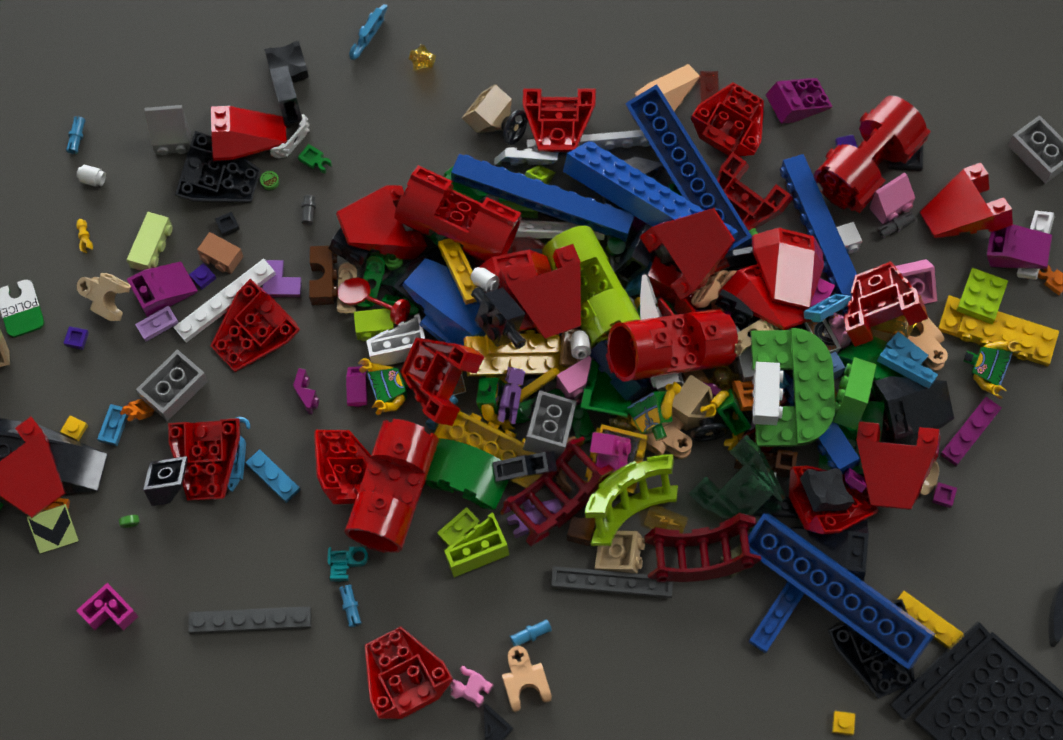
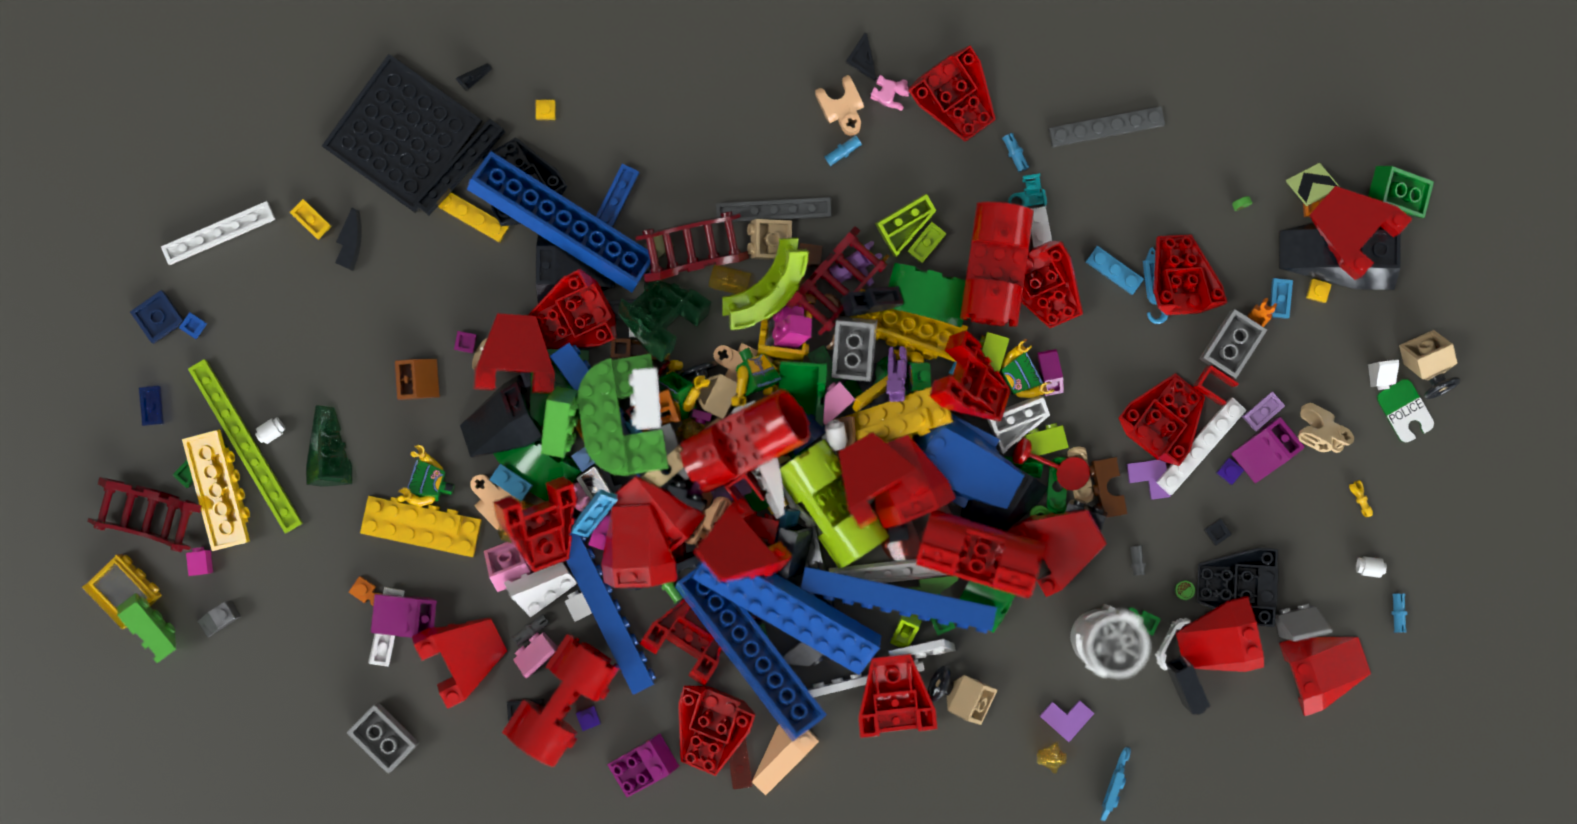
camera: 170 degrees right, 20 degrees up
(32, 340) = (1383, 374): none -> white slope
(76, 338) = (1340, 384): dark purple plate -> none
(107, 604) = (1240, 118): dark pink brick -> none
(149, 242) = (1291, 498): yellowish green brick -> none
(156, 90) = (1324, 668): none -> red wedge
(164, 480) = (1217, 246): black slope -> none
(213, 353) = (1210, 369): none -> red piece
(220, 253) = (1217, 497): nougat brick -> none
(290, 56) = (1195, 731): black brick -> none
(307, 396) = (1097, 352): magenta slope -> none
(338, 522) = (1040, 227): none -> white plate
(352, 125) = (1110, 641): none -> white cylinder
(402, 85) = (1067, 724): none -> medium lavender tile
(409, 409) = (995, 348): none -> lime slope
(458, 268) = (967, 493): yellow plate -> none
(485, 279) = (941, 480): white brick -> none
(499, 317) = (920, 439): black brick -> none
(615, 246) = (815, 558): dark green tile -> none
(826, 490) = (579, 316): black brick -> none
(854, 480) = (552, 337): magenta plate -> none
(892, 248) = (541, 587): none -> white wedge
(907, 367) = (509, 460): dark azure plate -> none
(971, 431) = (442, 414): magenta plate -> none
(982, 296) = (438, 559): lime plate -> none
(996, 463) = (417, 379): none -> dark orange slope

